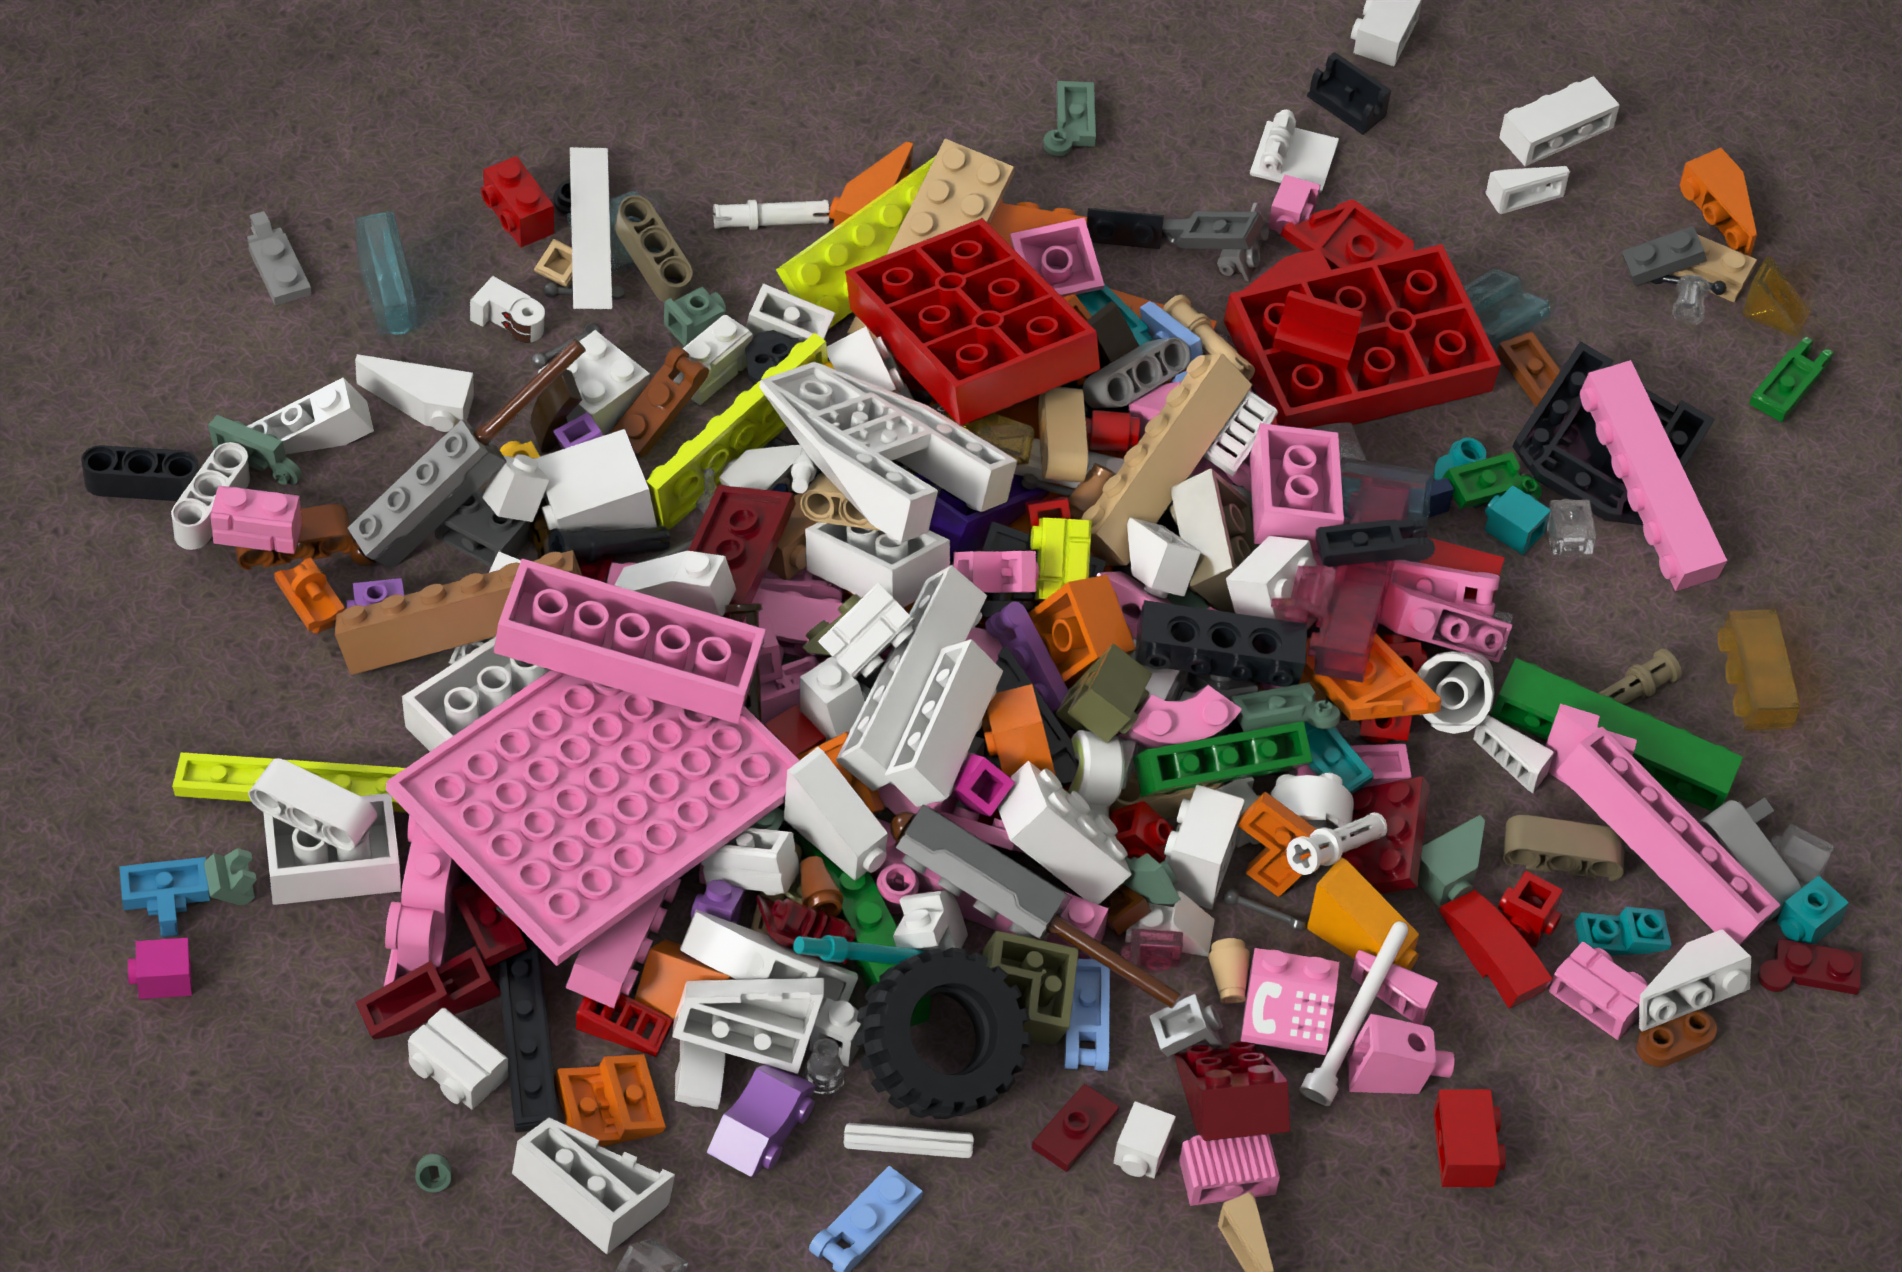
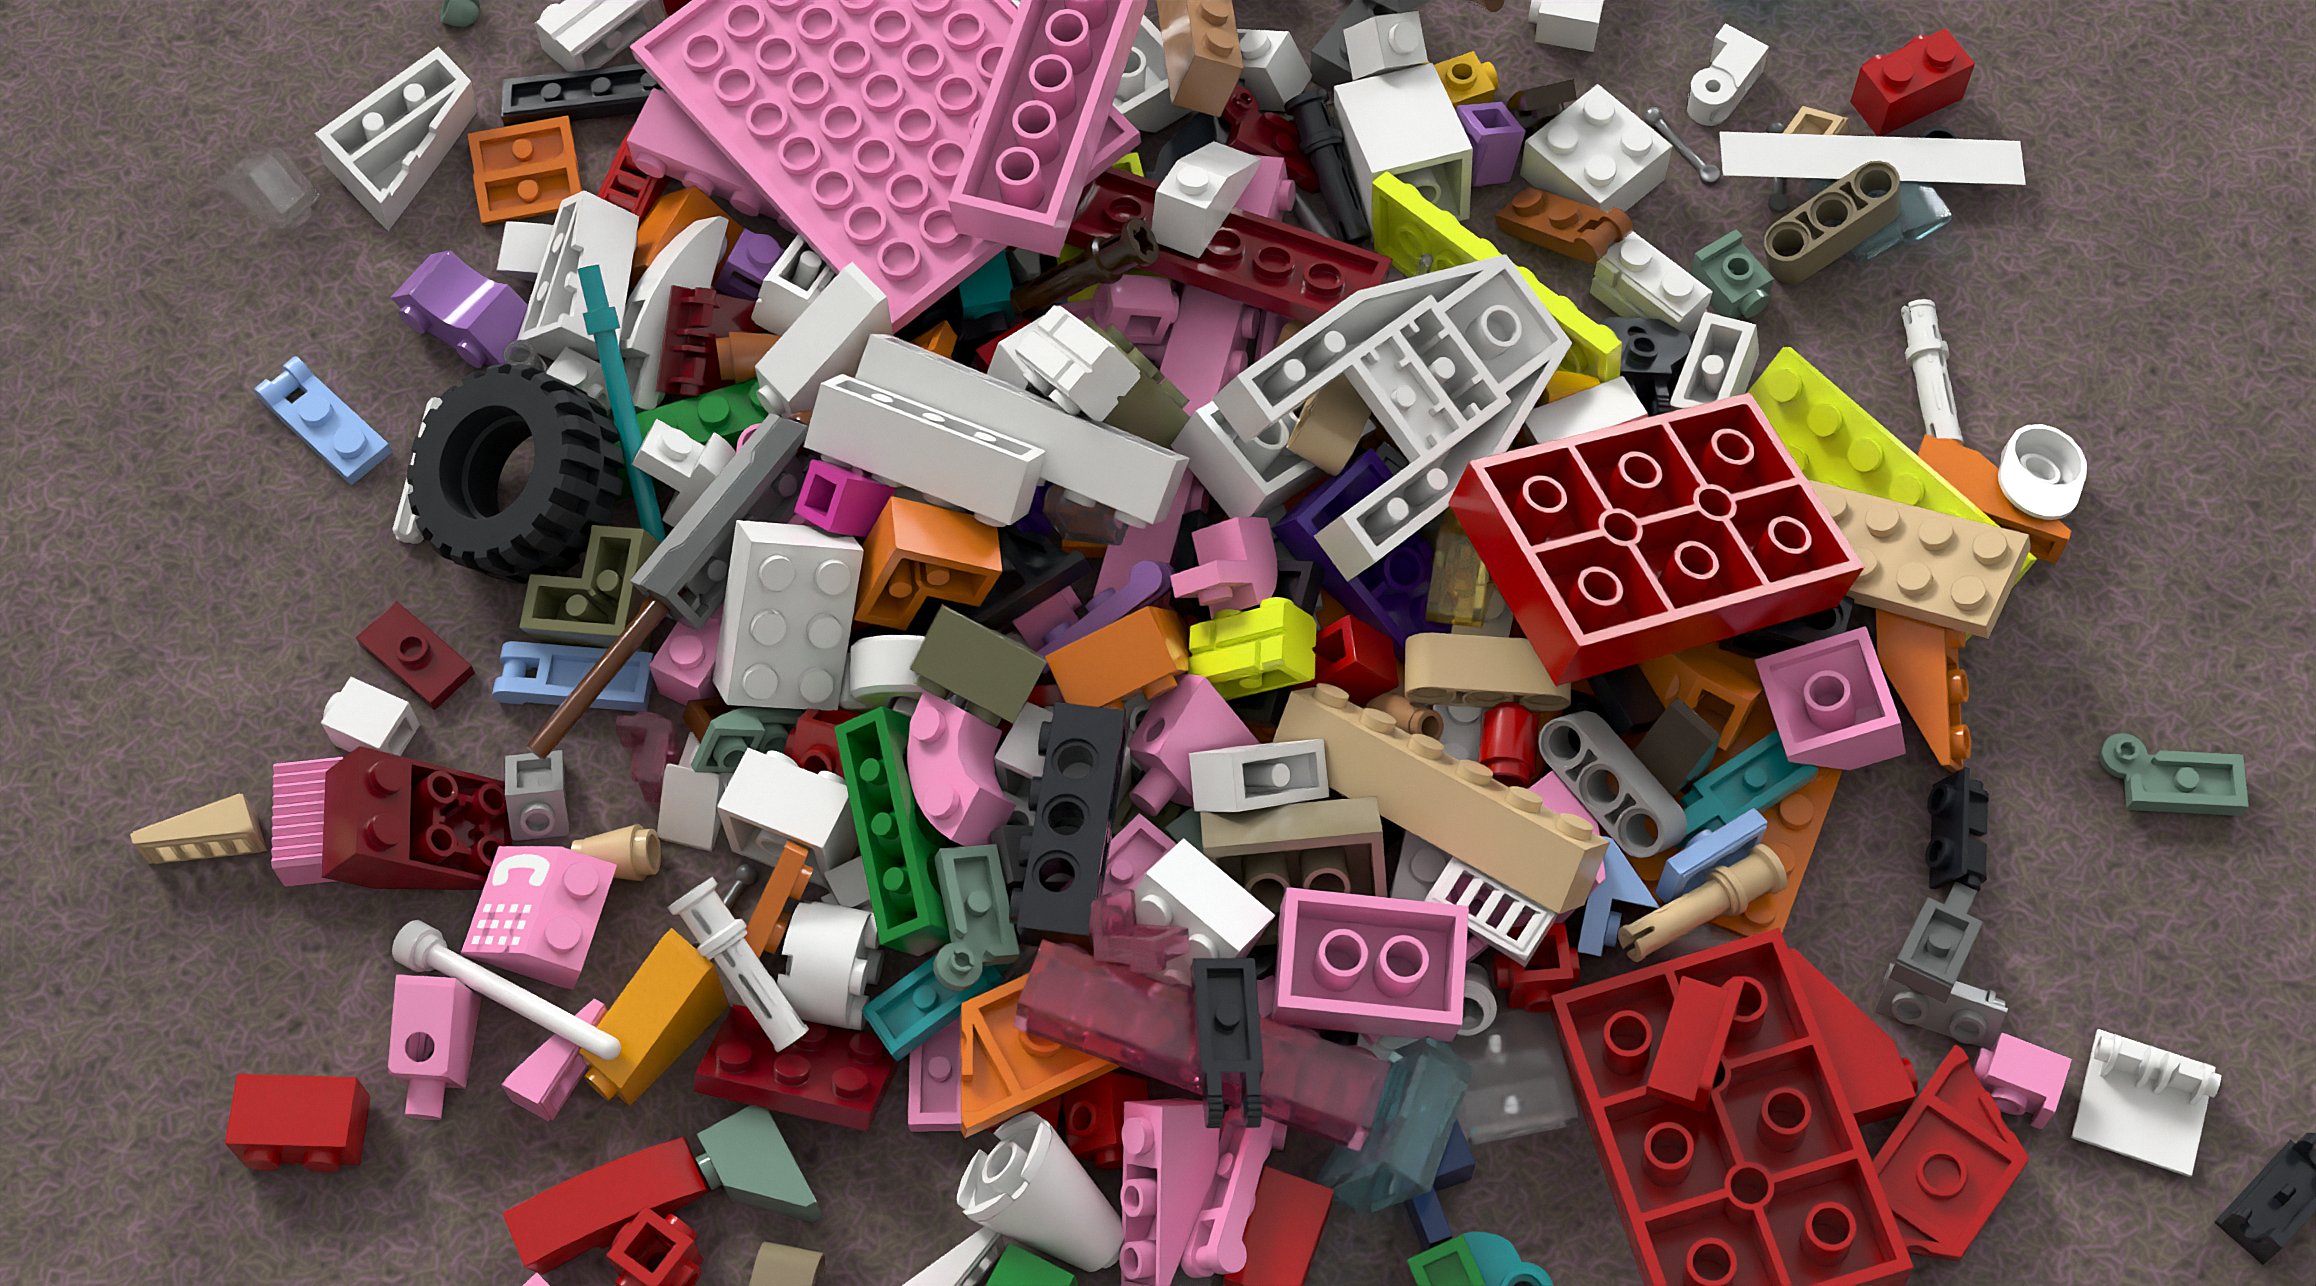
camera: 100 degrees right, 10 degrees up
(851, 154) = (2042, 472): none -> white cap

